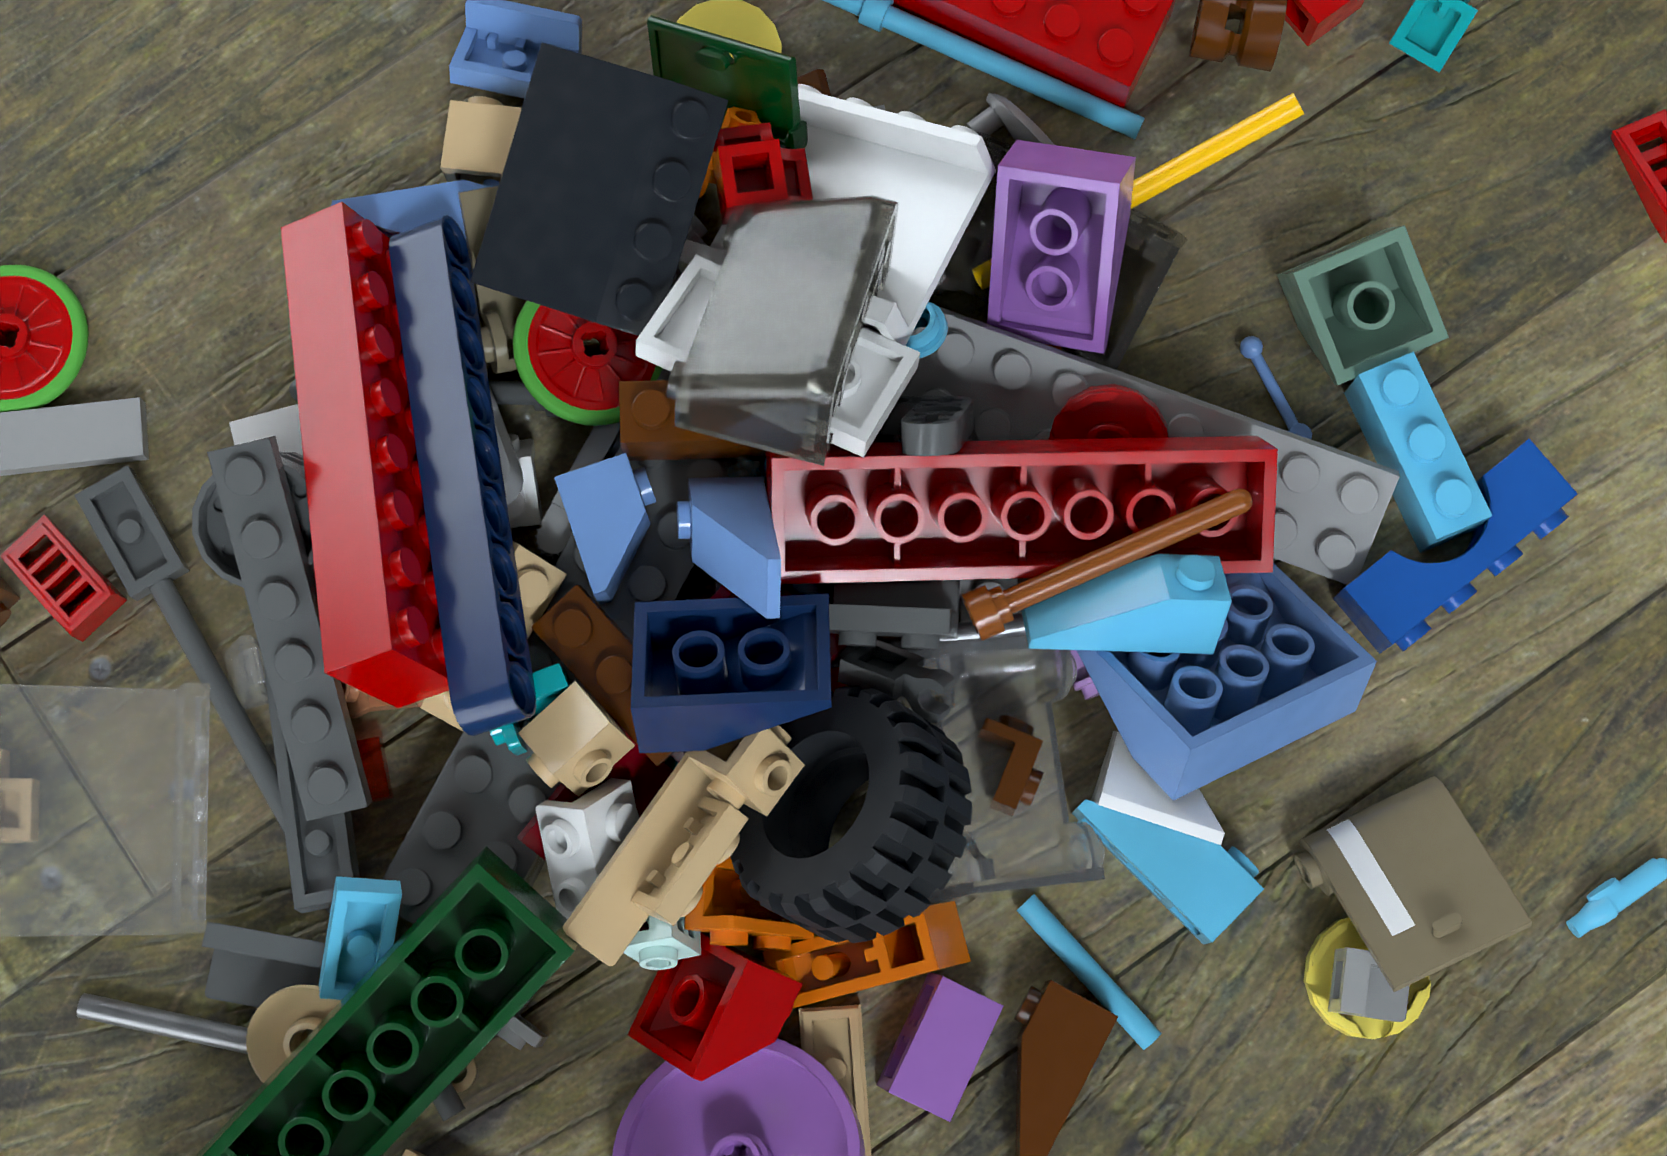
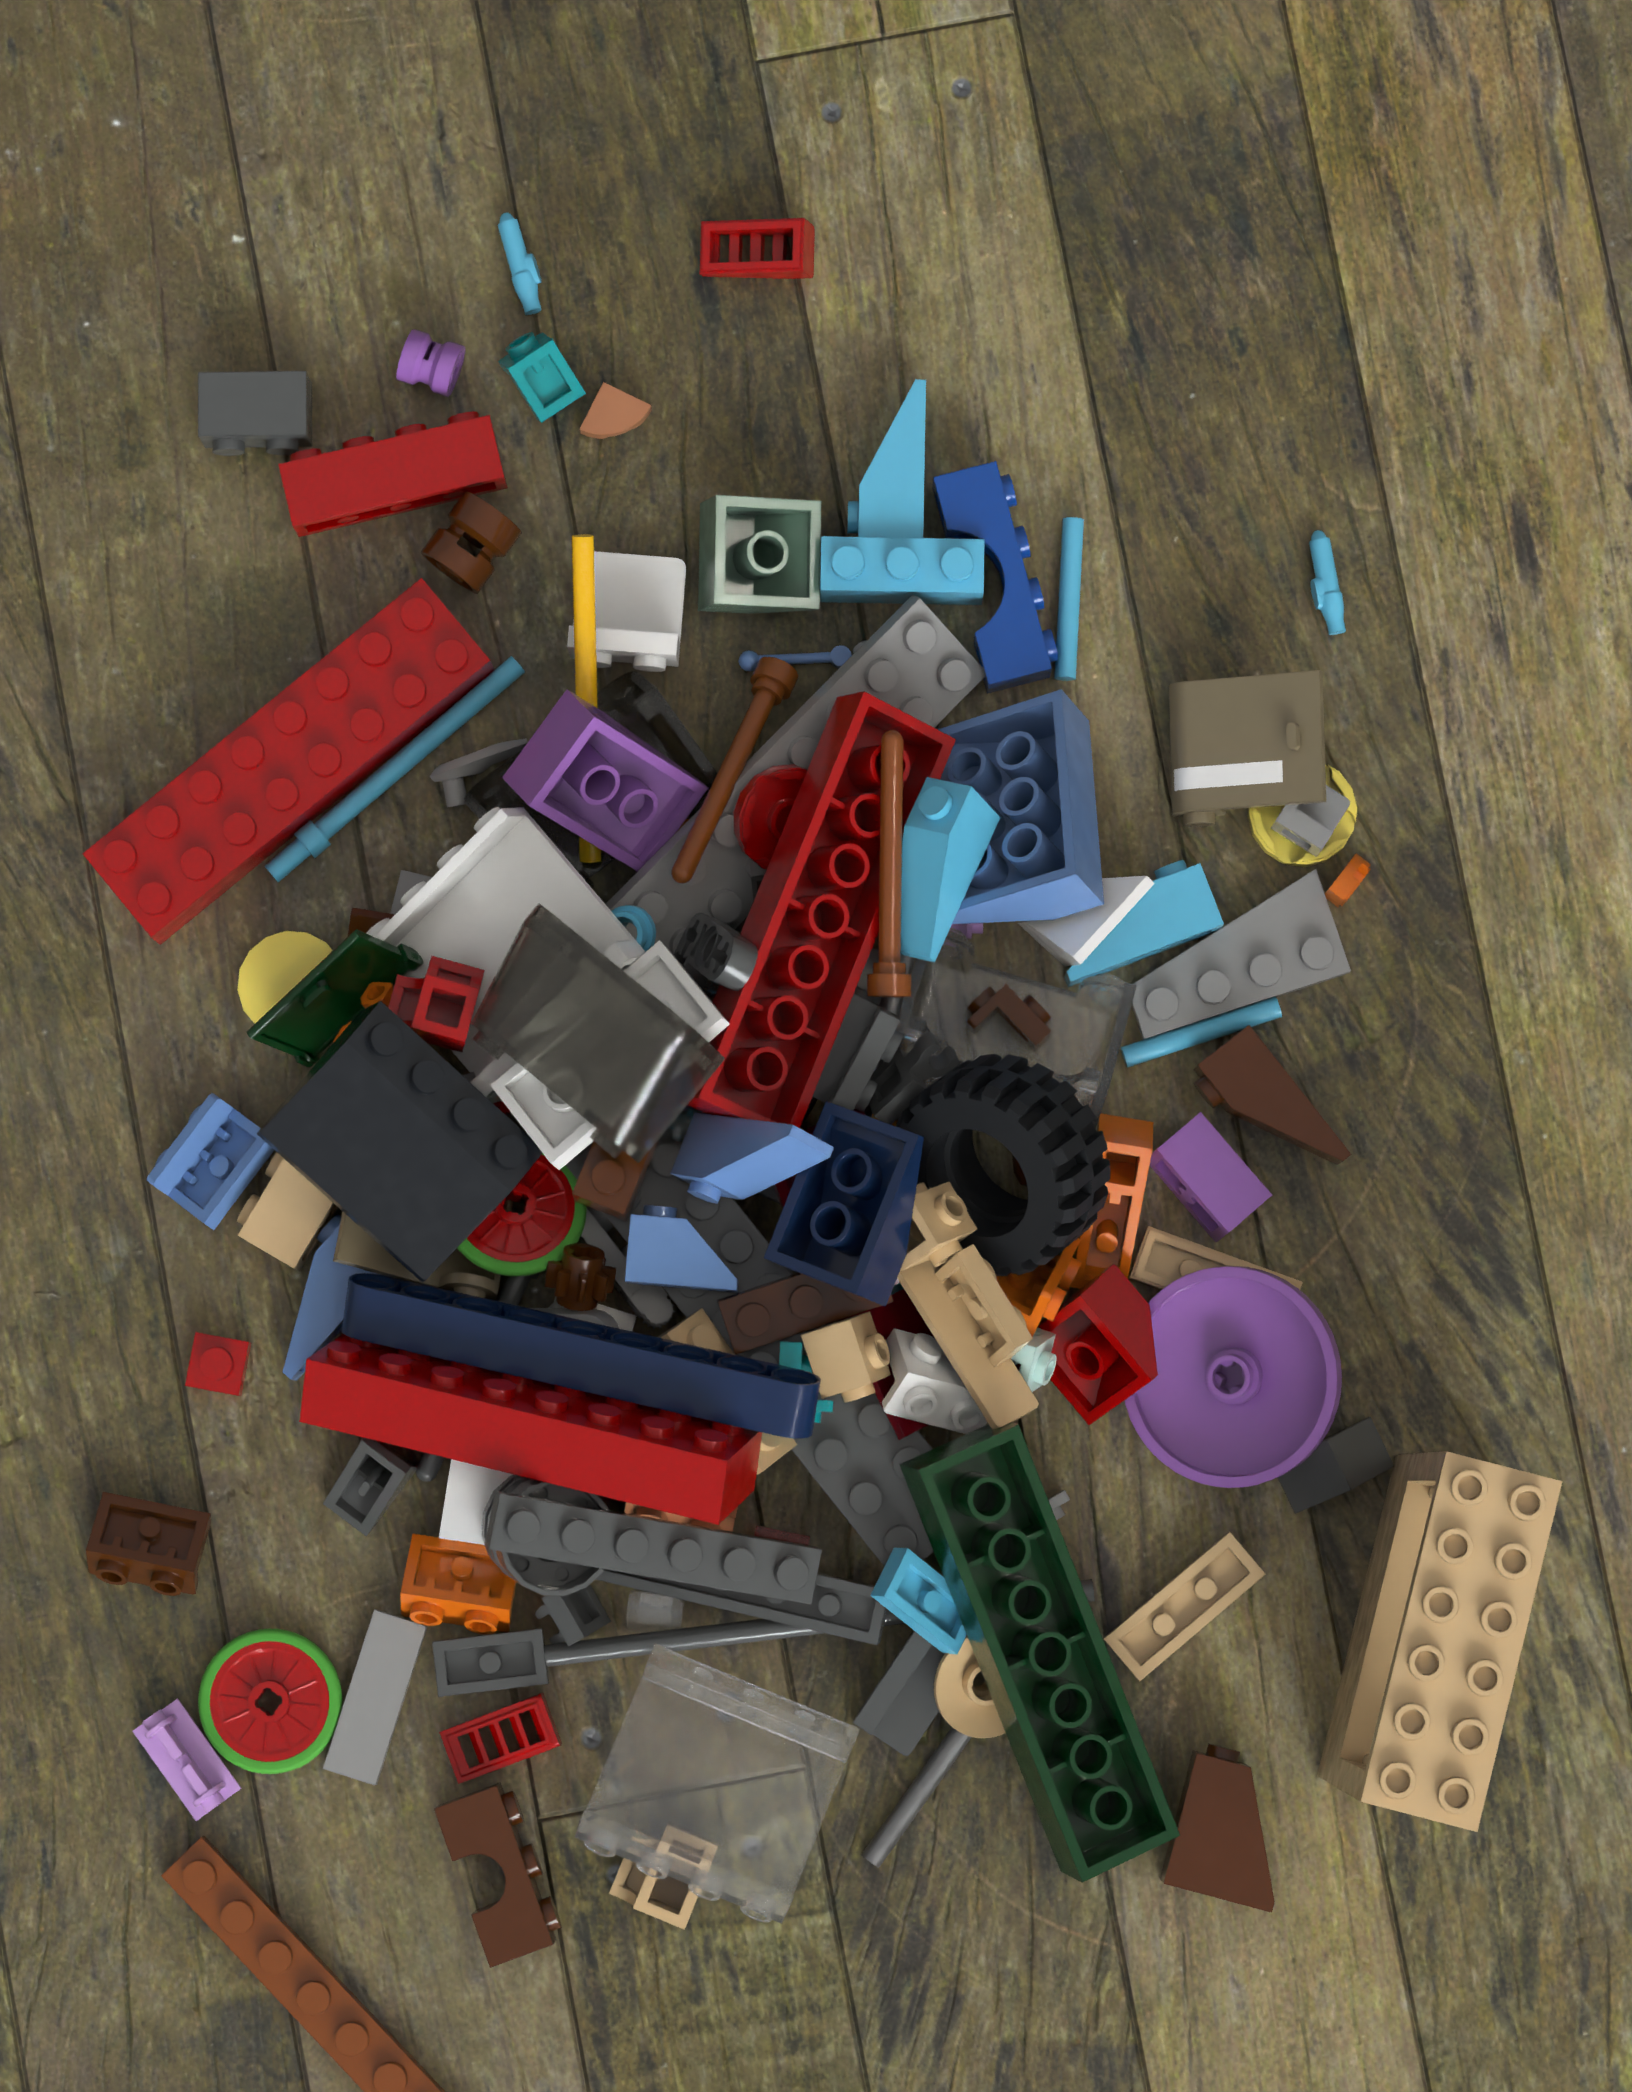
camera: 65 degrees left, 5 degrees up
(117, 154) = (147, 1544): none -> reddish brown bracket
(179, 449) = (455, 1586): none -> orange bracket
(211, 597) = (574, 1615): none -> dark grey tile
(257, 339) = (369, 1484): none -> dark grey slope
(323, 147) = (218, 1364): none -> red plate
(547, 441) = (580, 1277): none -> reddish brown gear
(1198, 999) = (1257, 957): none -> light grey wing
(1239, 377) = (771, 682): none -> dark orange piece
(1246, 210) = (637, 610): none -> white bracket
(1318, 1056) = (1348, 880): none -> orange tile
(1432, 110) = (613, 413): none -> nougat tile
(1470, 636) = (1069, 598): none -> medium azure bar
(1506, 405) = (894, 482): none -> medium azure slope

